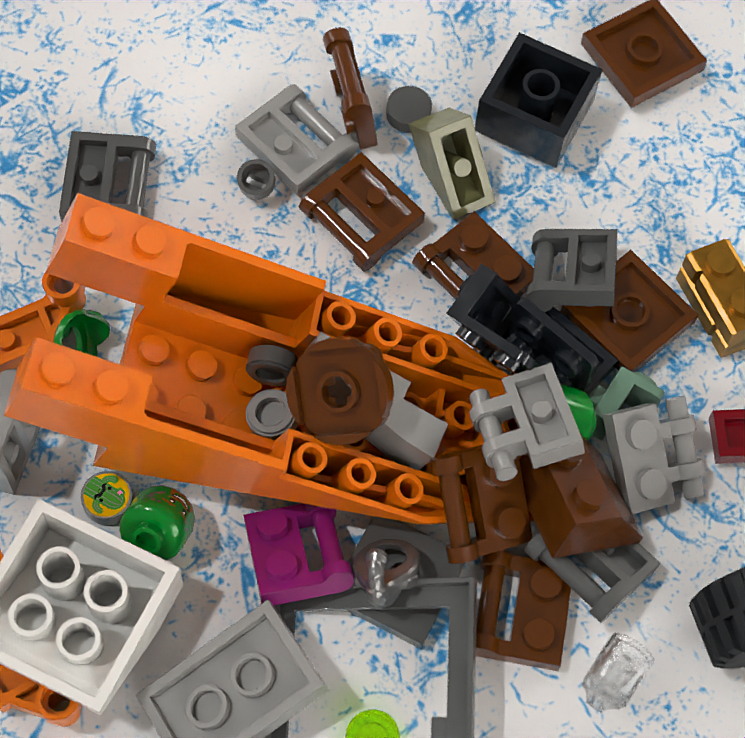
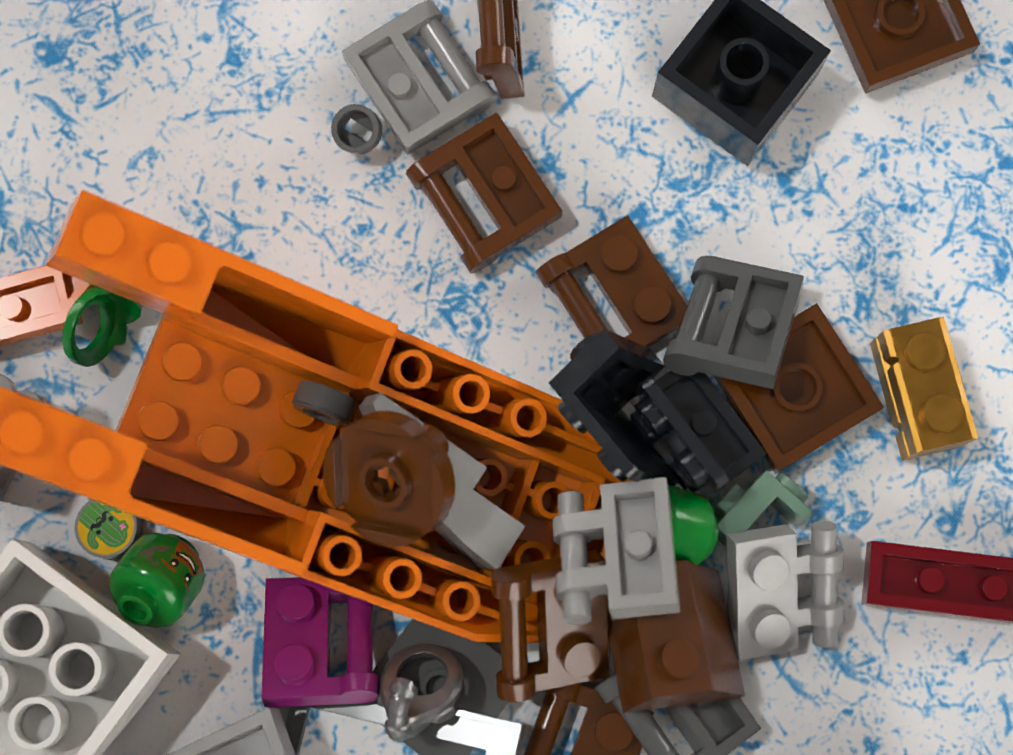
camera: 15 degrees right, 15 degrees up
(93, 167) = (151, 96): dark grey plate -> none
(270, 414) = (304, 467): light grey tile -> none
(406, 106) = (573, 53): dark grey tile -> none
(453, 160) = (613, 140): olive slope -> none

